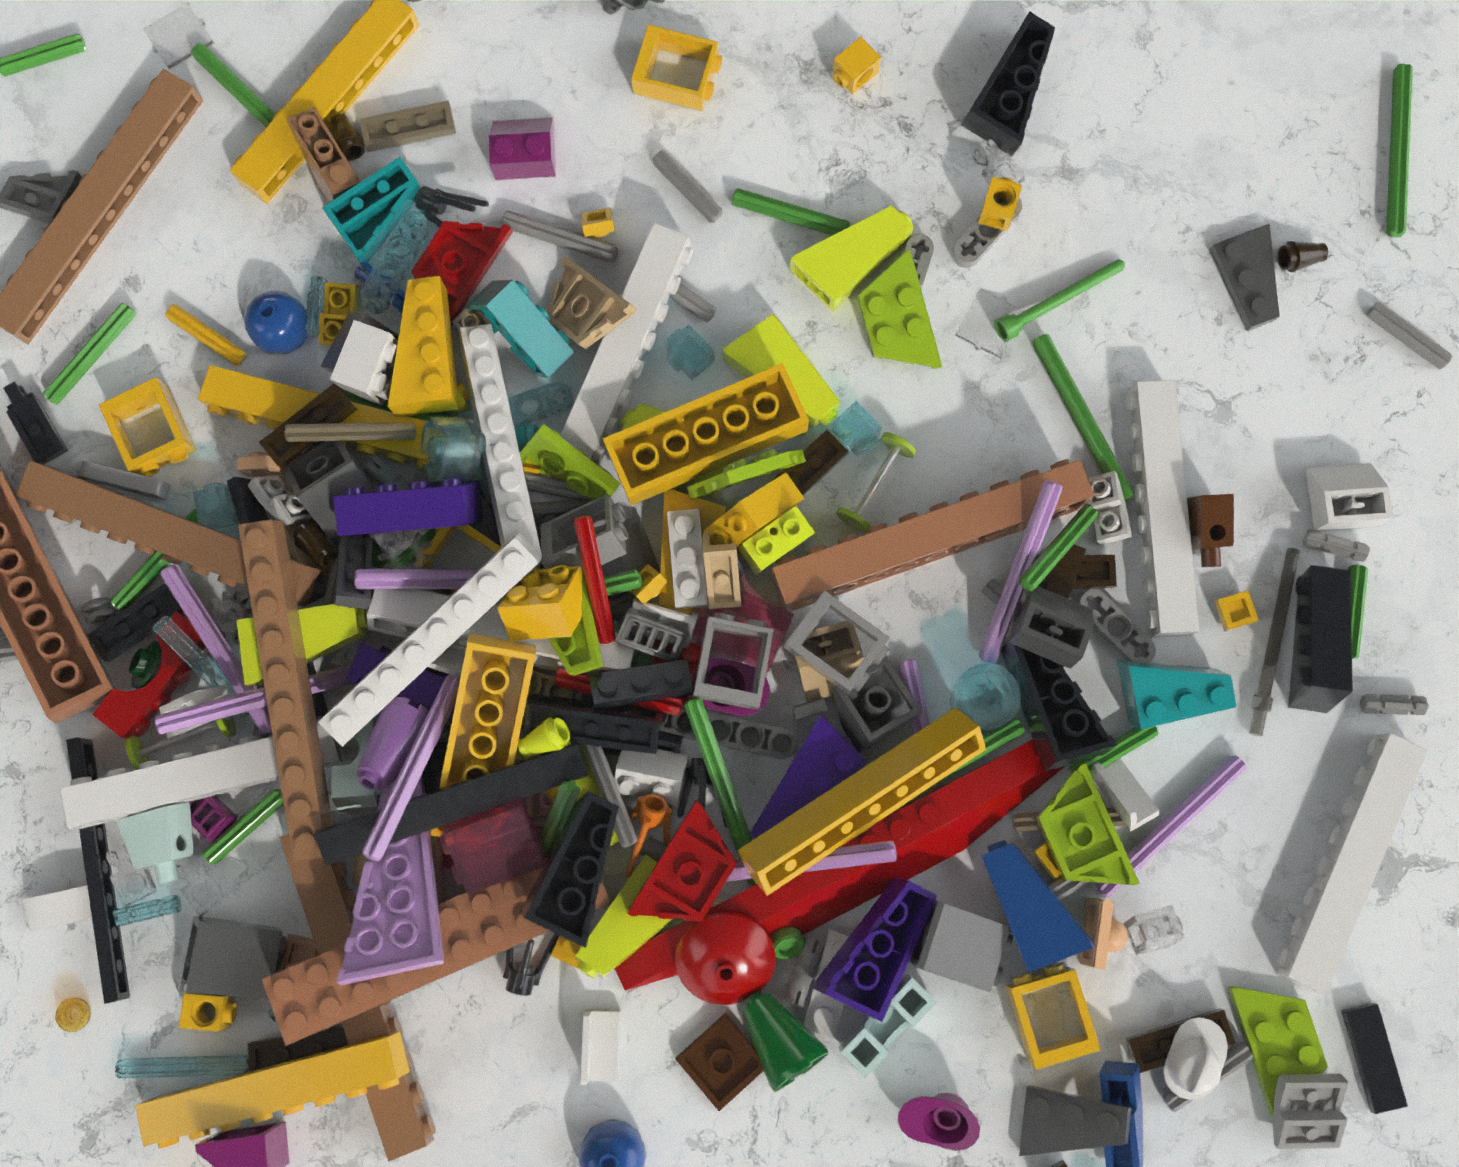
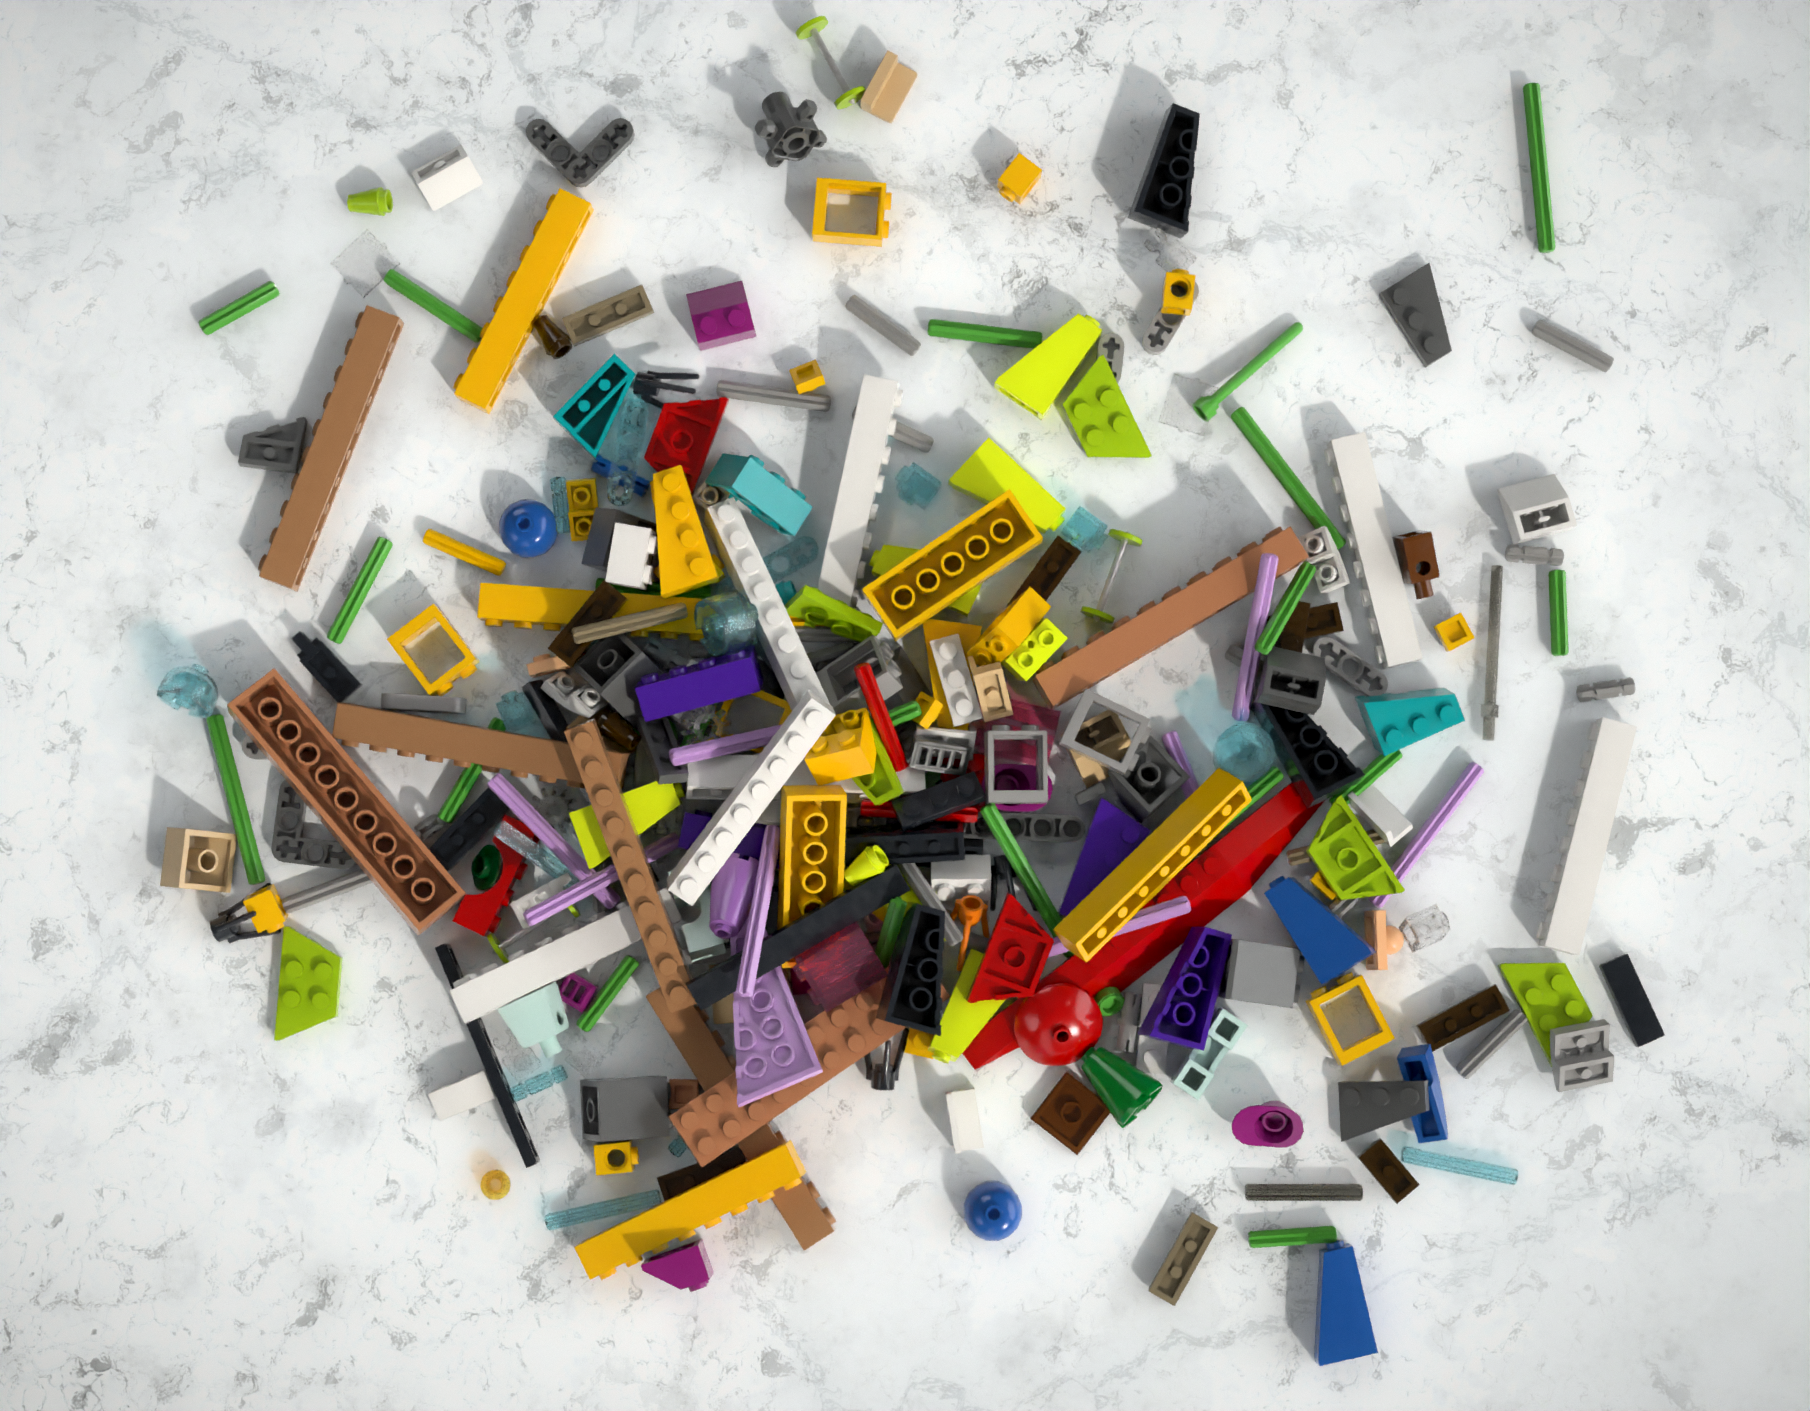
camera: 15 degrees left, 5 degrees up
(322, 154) = (540, 365): medium nougat slope -> none
(585, 306) = (814, 462): tan wing -> none
(741, 471) = (989, 596): lime wing -> none
(1195, 1059) = (1477, 1030): white piece -> none
(1299, 255) = (1459, 289): dark brown cone -> none
(1322, 640) = (1532, 644): black wedge -> none

